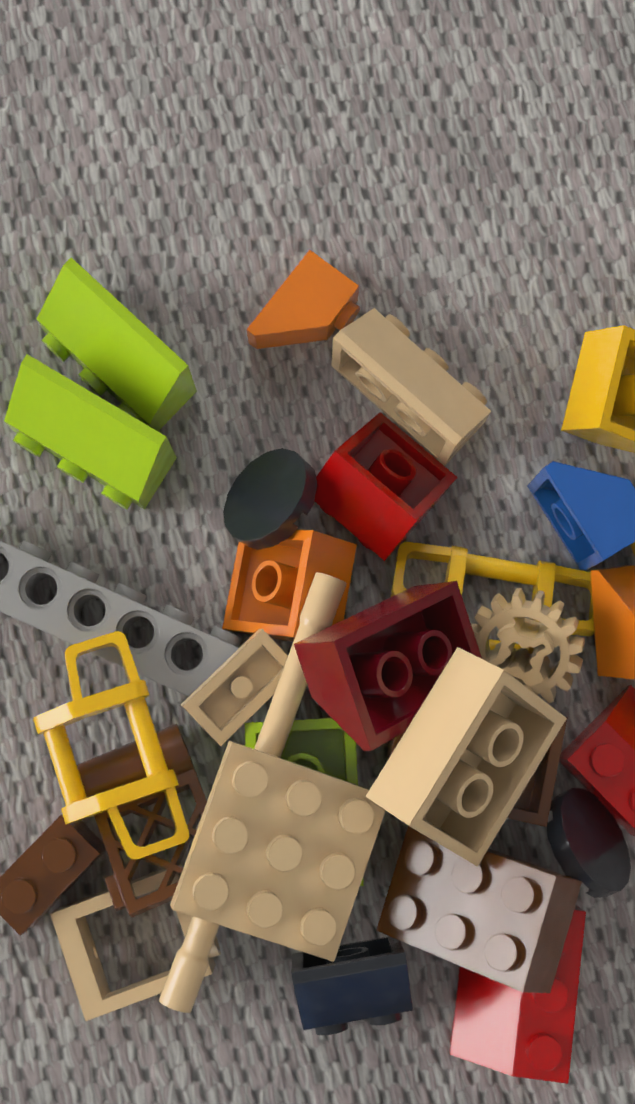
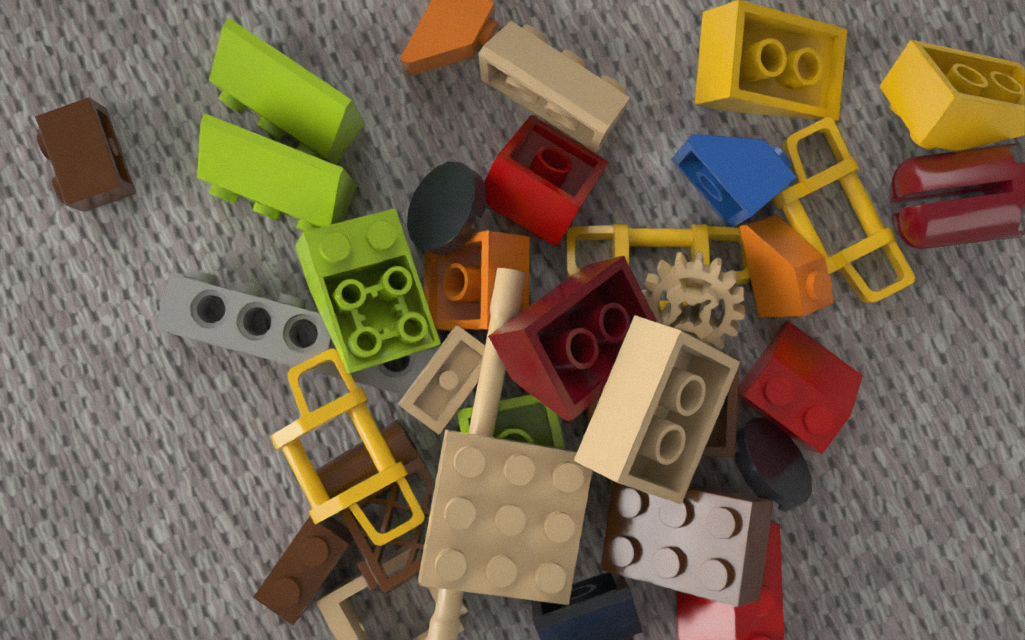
camera: 10 degrees left, 5 degrees up
(168, 573) = (367, 290): none -> lime slope

